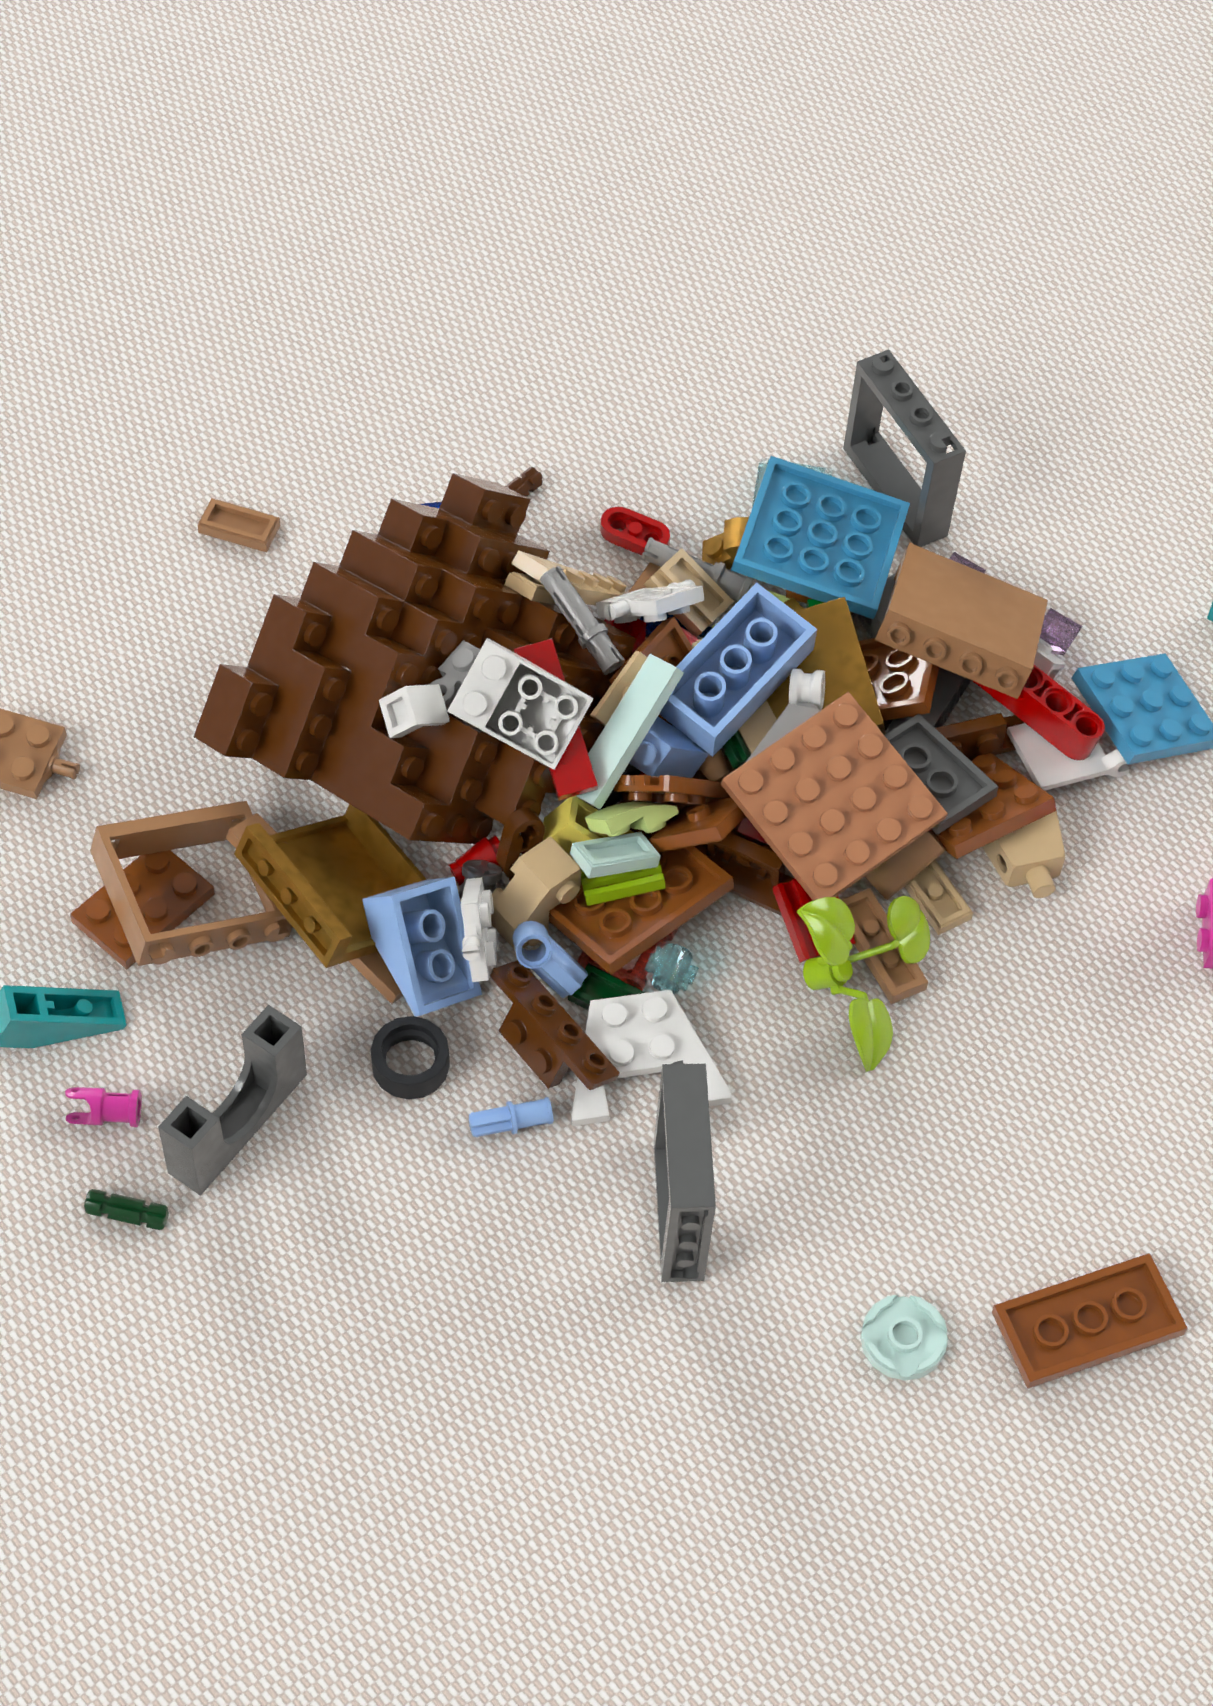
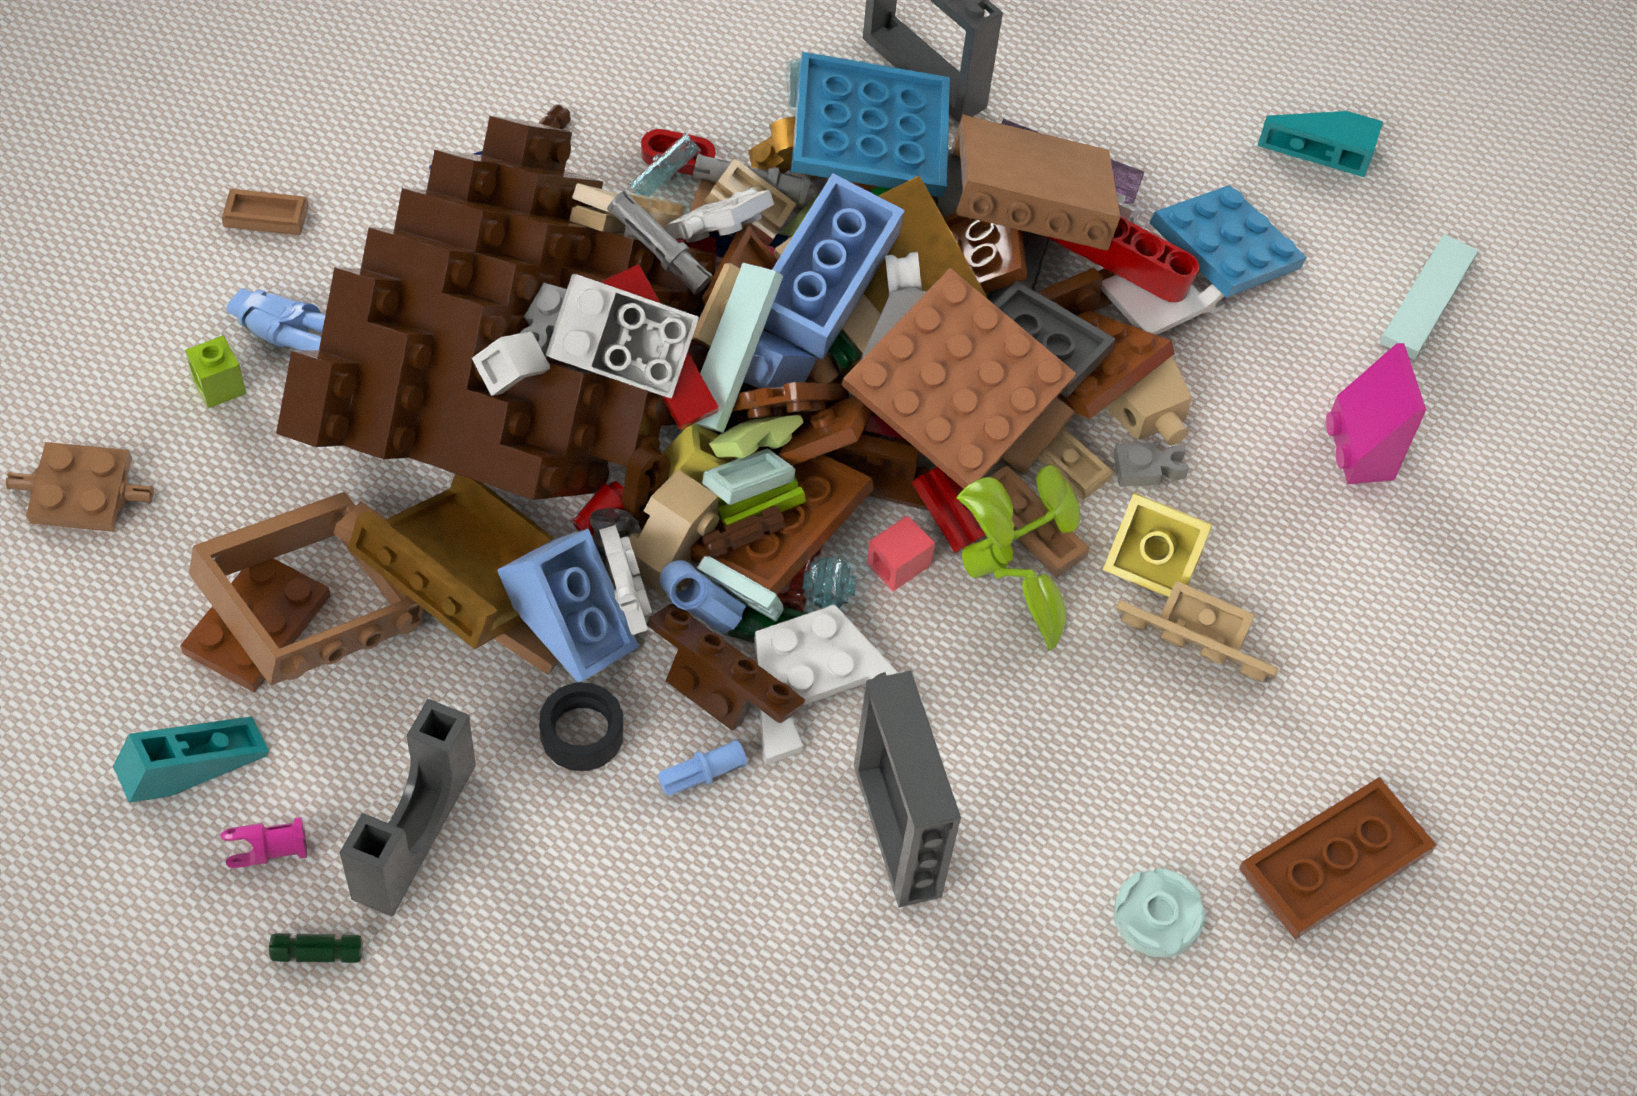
camera: 15 degrees left, 0 degrees up
(158, 668) = (215, 371): none -> lime brick
(223, 627) = (278, 319): none -> light blue piece
(586, 957) = (742, 587): none -> light aqua tile
(600, 905) = (743, 531): none -> reddish brown axle
(617, 545) = (665, 166): none -> clear light blue pin
(746, 953) = (900, 553): none -> coral panel
(994, 994) = (1157, 545): none -> light yellow slope
(1005, 912) = (1142, 465): none -> light grey plate
(1020, 1073) = (1203, 622): none -> tan bracket

